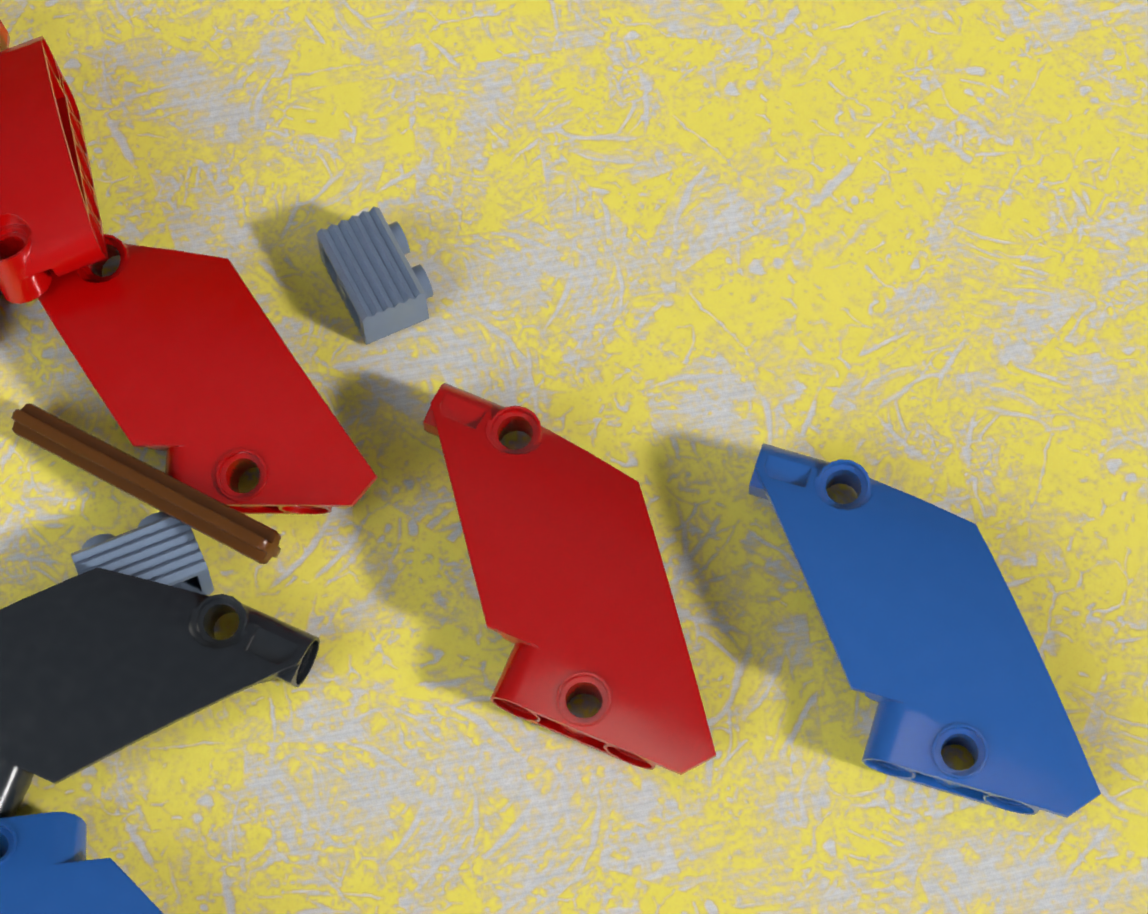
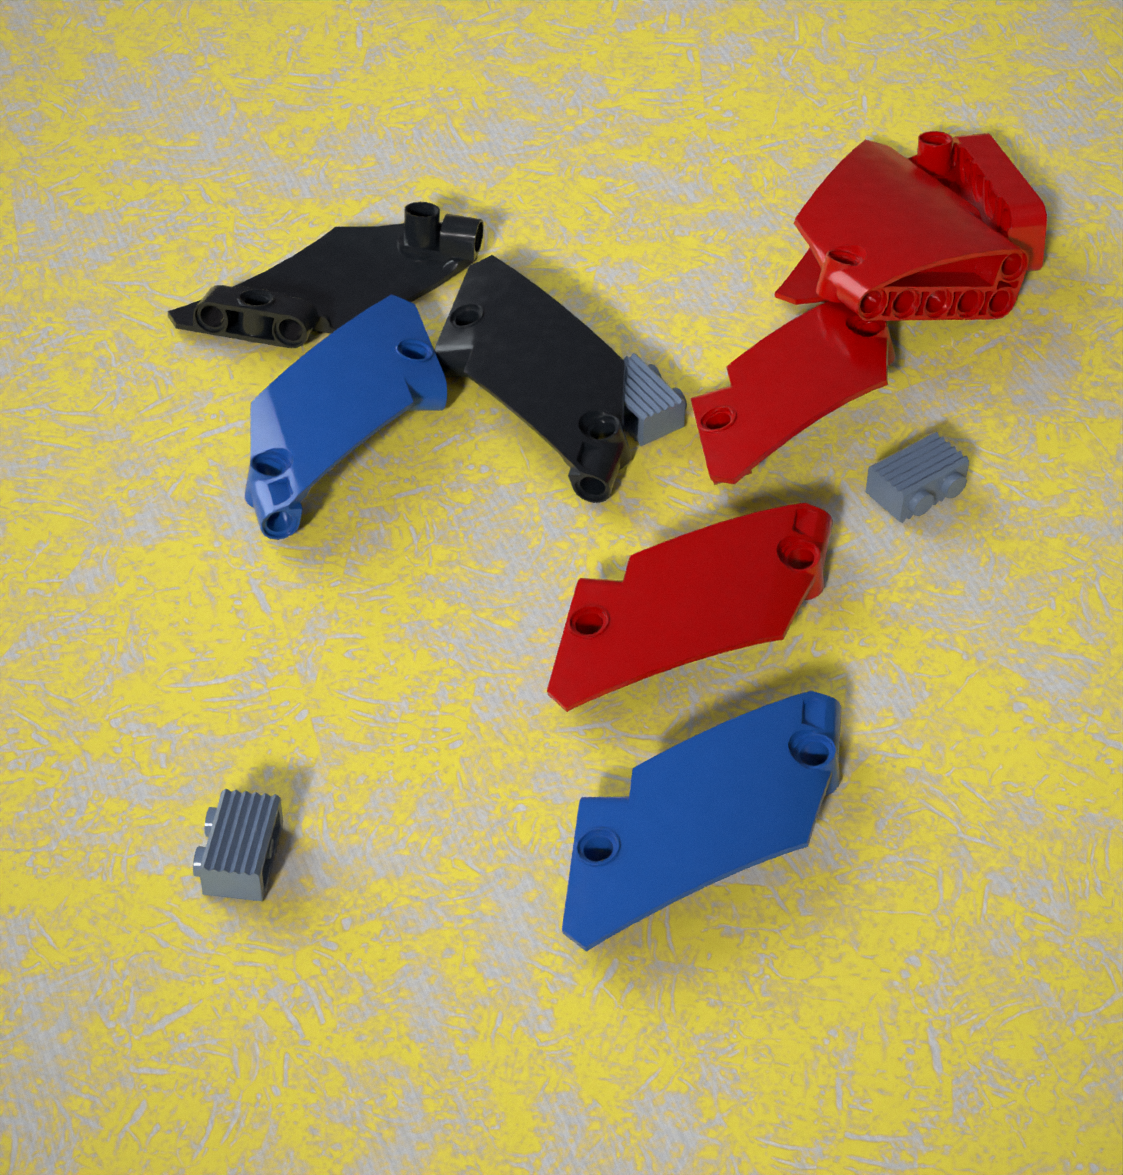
camera: 75 degrees right, 15 degrees down
(147, 484) = (697, 379): reddish brown axle -> none

